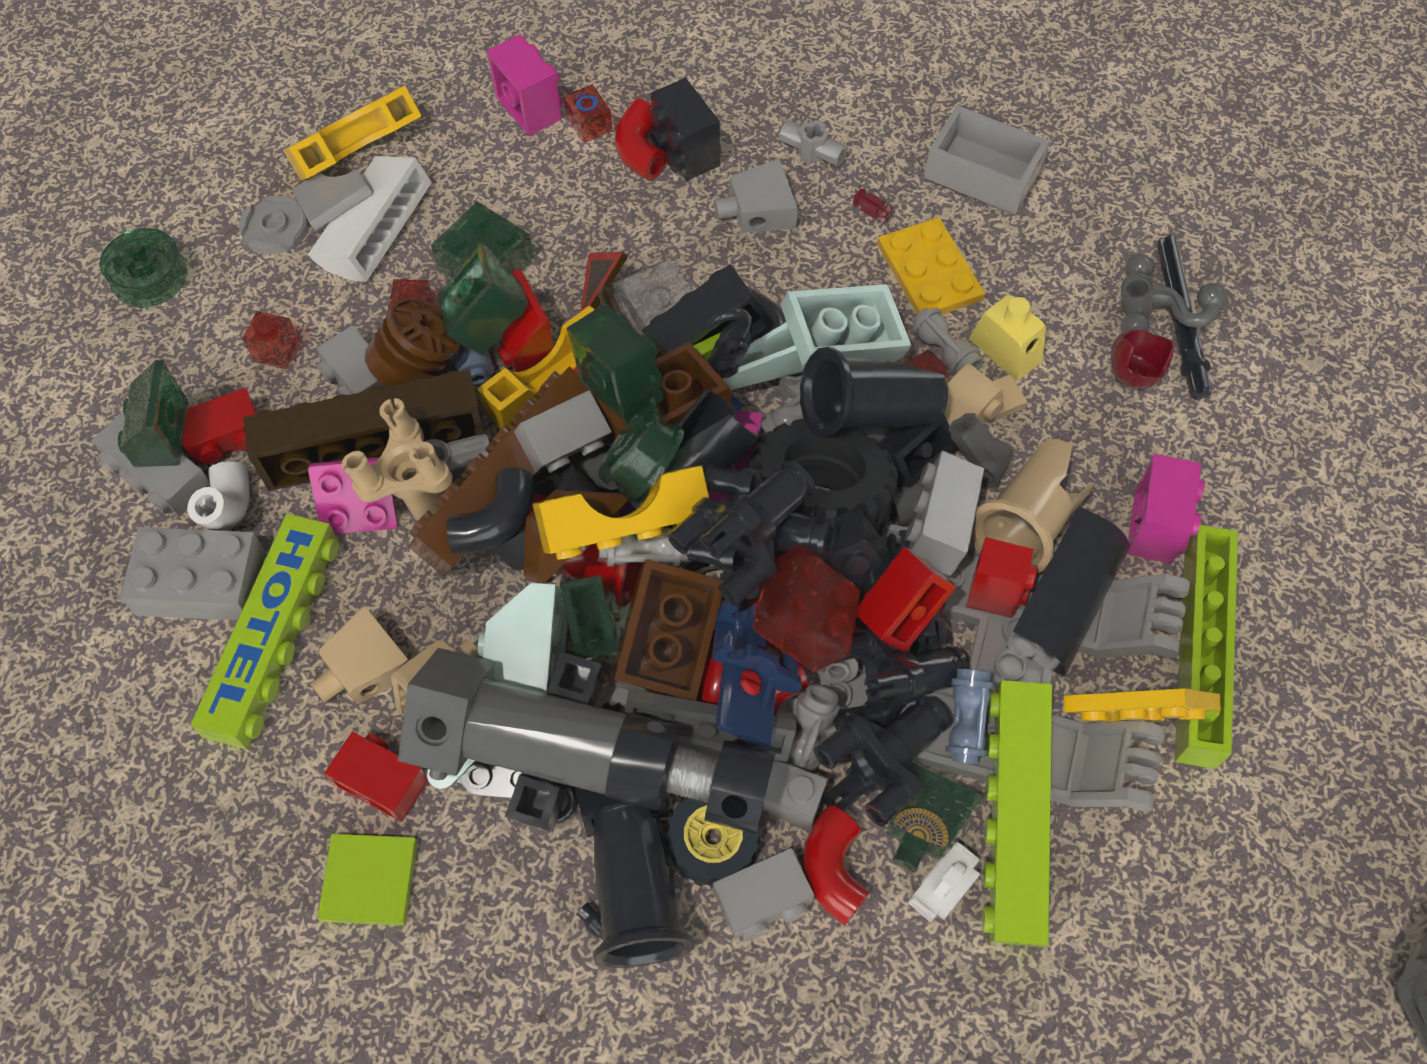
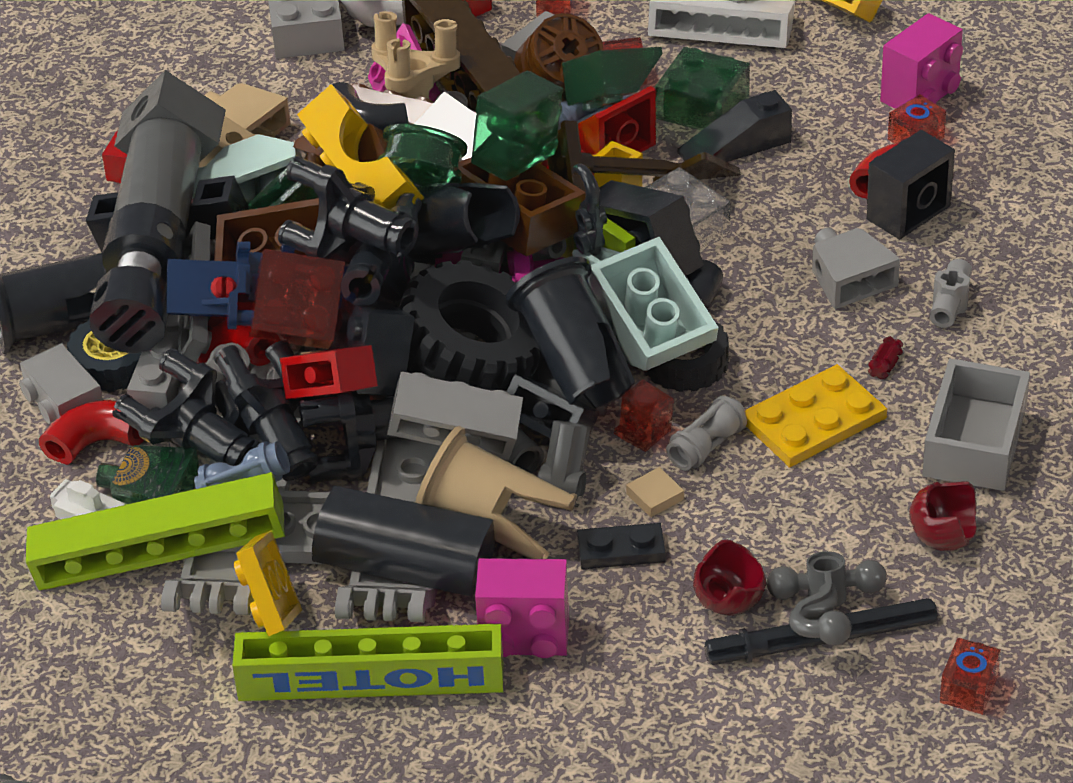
camera: 80 degrees right, 20 degrees down
(266, 632) = (264, 59): lime brick -> none
(368, 879) = (52, 170): lime tile -> none
(552, 240) = (744, 130): none -> black slope
(972, 393) = (624, 448): tan brick -> none
(1001, 578) = (393, 460): red brick -> none
(1011, 336) = (723, 472): light yellow torso -> none
(1065, 422) = (621, 545): none -> black plate
(1081, 209) = (945, 515): none -> dark red hair
(1246, 231) = (970, 675): none -> clear red brick

